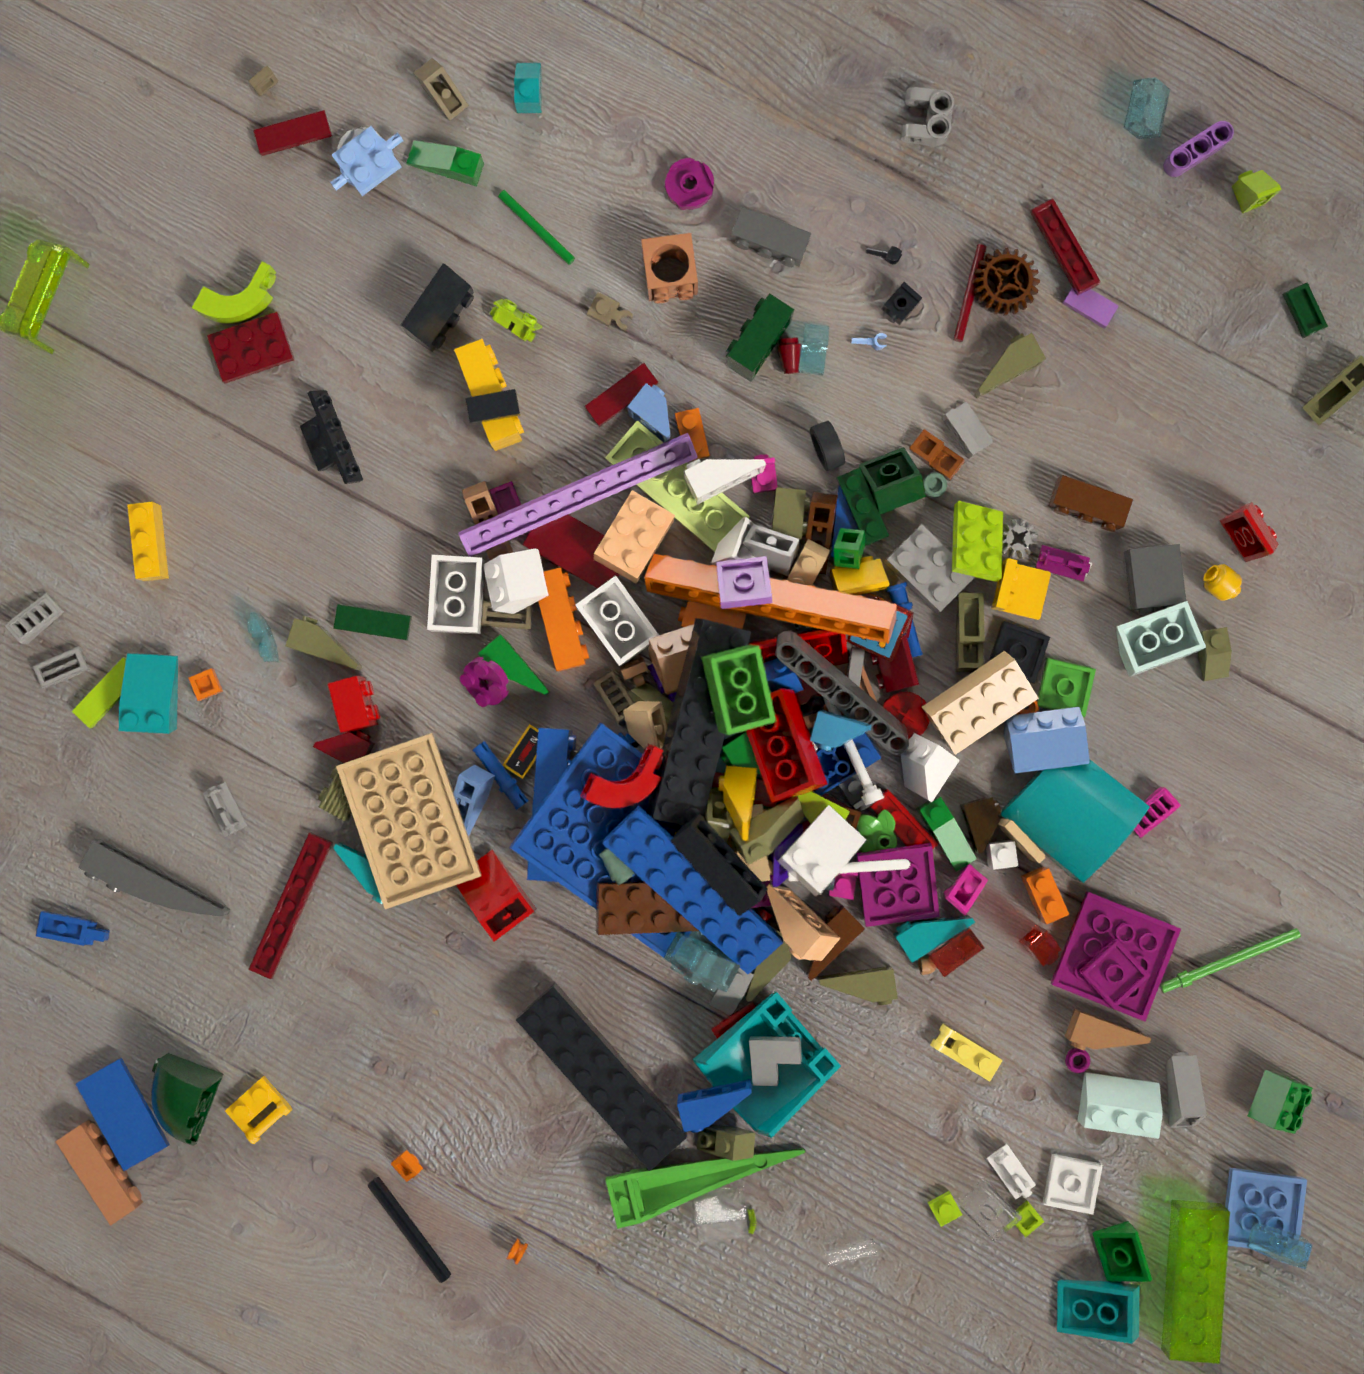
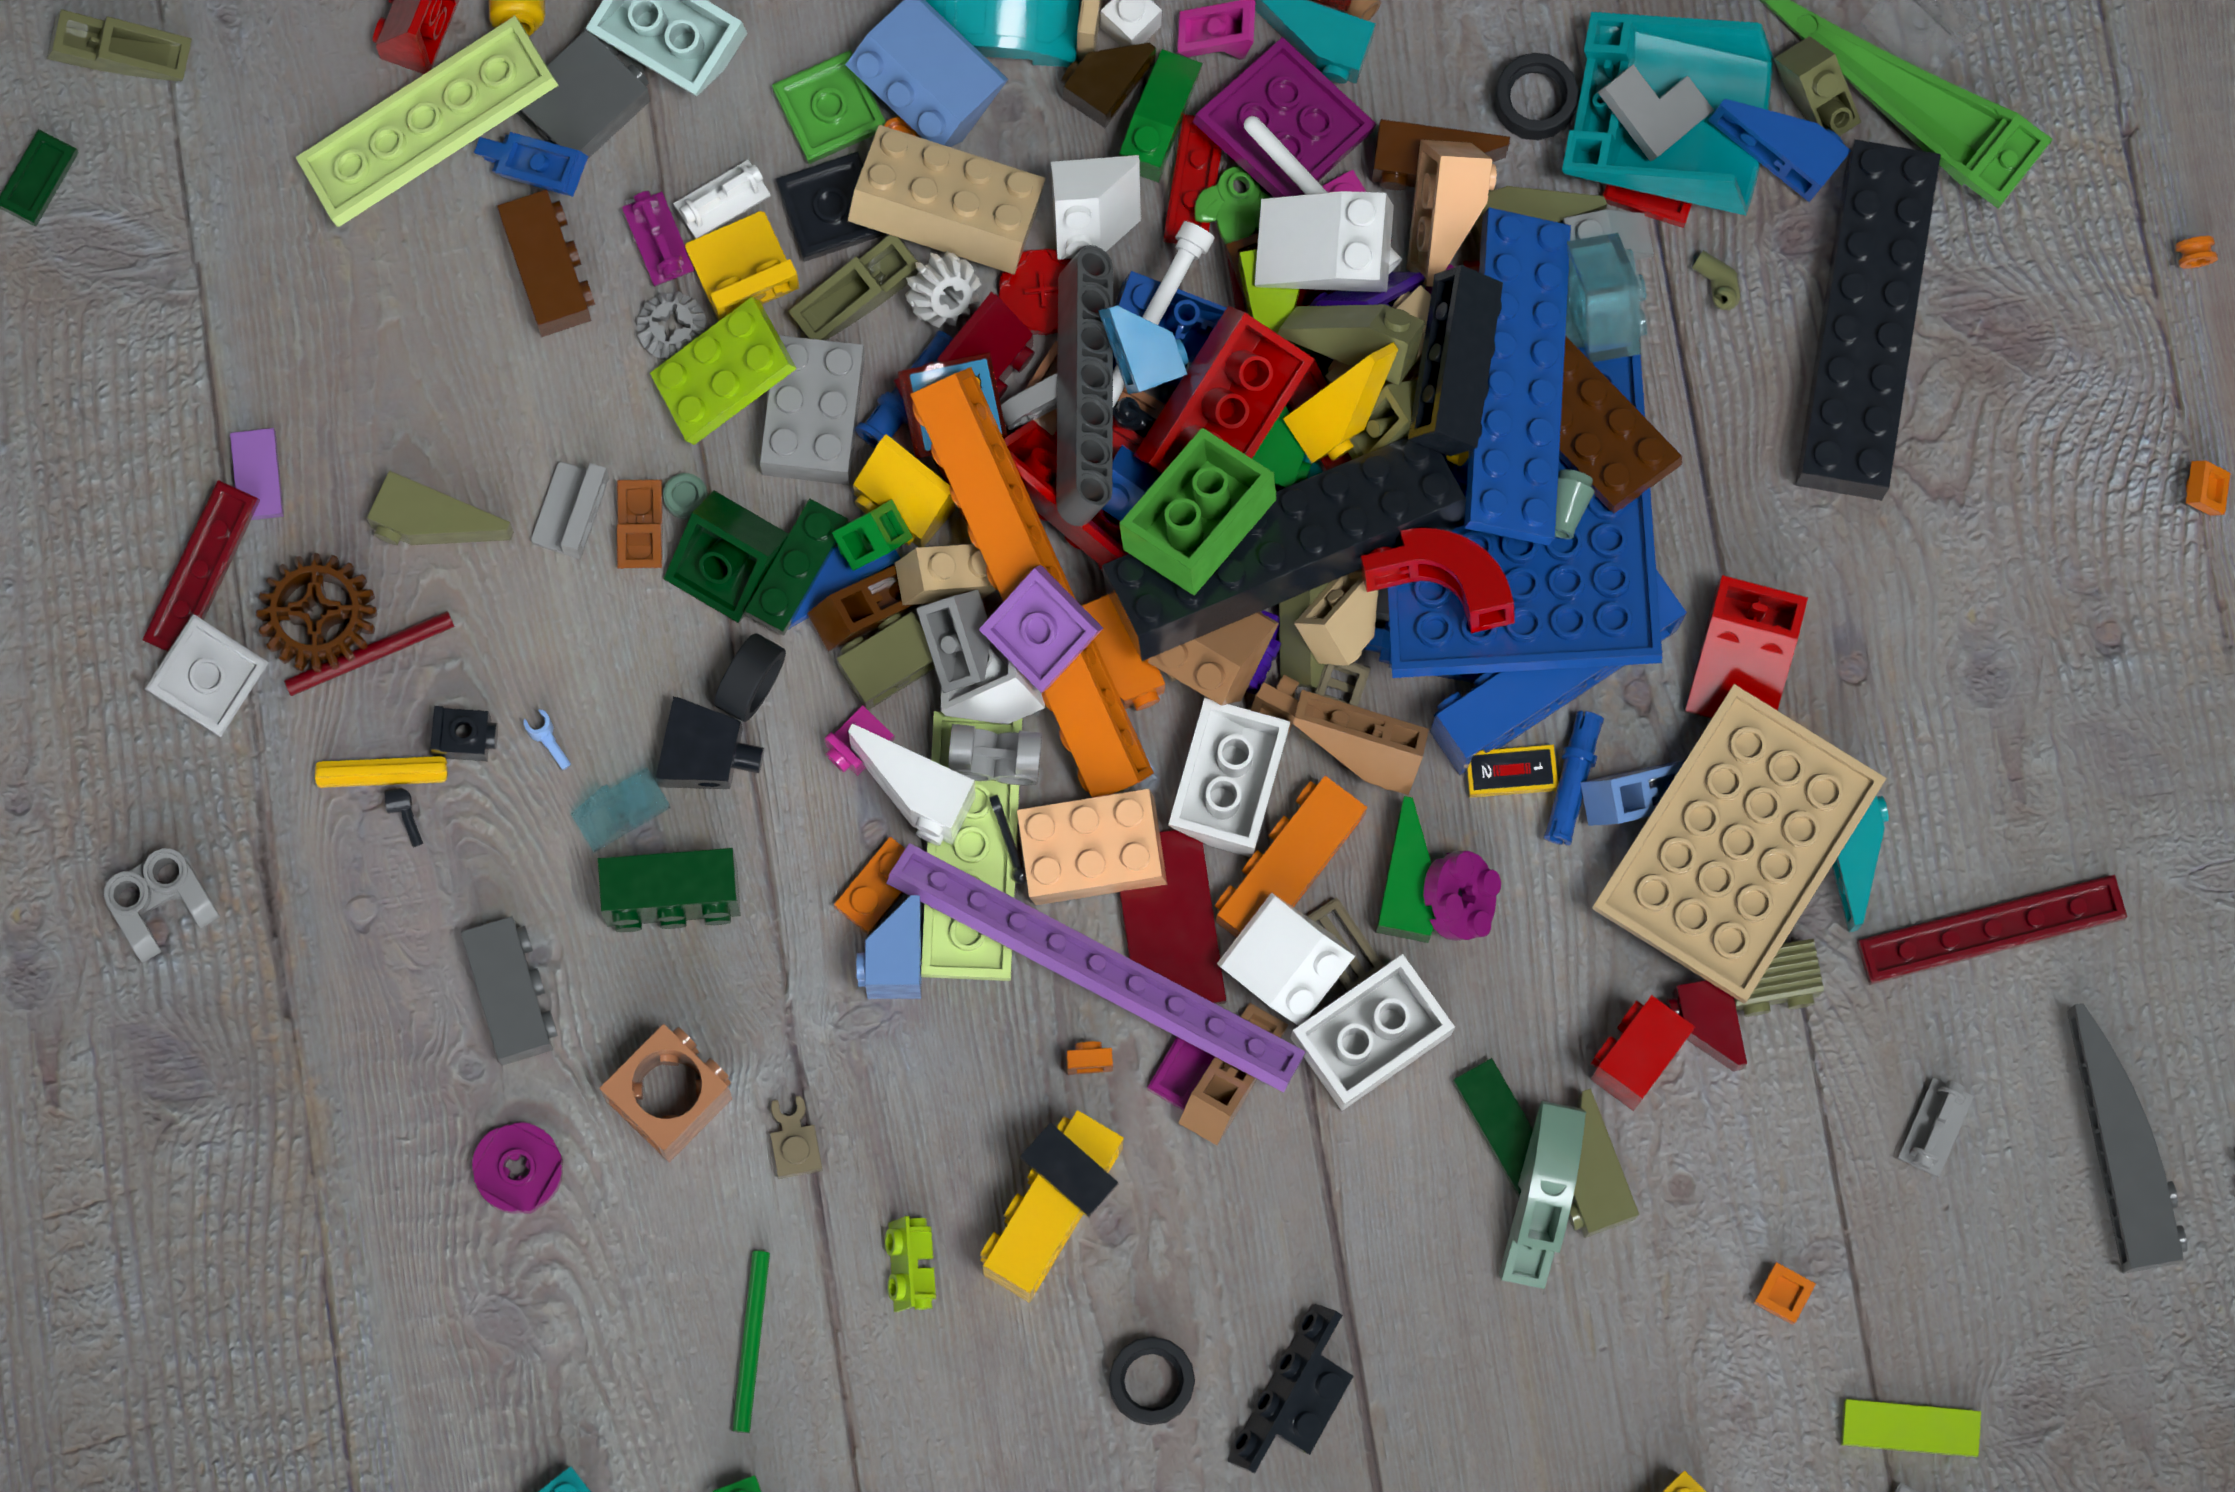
camera: 135 degrees left, 10 degrees down
(149, 694) = (1862, 1358): teal slope -> none
(260, 630) = (1643, 1278): clear light blue slope -> none
(325, 613) = (1545, 1195): none -> sand green slope
(366, 374) = (1158, 1347): none -> black tyre
(438, 308) = (984, 1378): black slope -> none
(543, 464) = (1089, 1058): none -> orange plate
(587, 693) = (1368, 743): none -> medium nougat slope
(620, 395) = (900, 1029): dark red tile -> none
(671, 1025) = (1723, 280): none -> olive arm
(686, 510) = (1019, 872): none -> black hinge
(707, 523) = (1001, 757): none -> light grey piece
(789, 353) = (657, 832): dark red cone -> none
(812, 403) = (703, 749): none -> black torso
(822, 1029) = (1539, 64): none -> black tyre
(853, 790) = (1206, 274): dark grey bracket -> none
(868, 984) = (1450, 60): olive slope -> none
(912, 257) = (381, 771): none -> yellow axle
(939, 669) = (943, 289): none -> white gear
(1014, 213) = (206, 675): none -> light grey plate
(1059, 605) = (722, 199): none -> white hinge
(1140, 531) = (534, 162): none -> blue hinge
(1197, 498) = (426, 121): none -> yellowish green plate

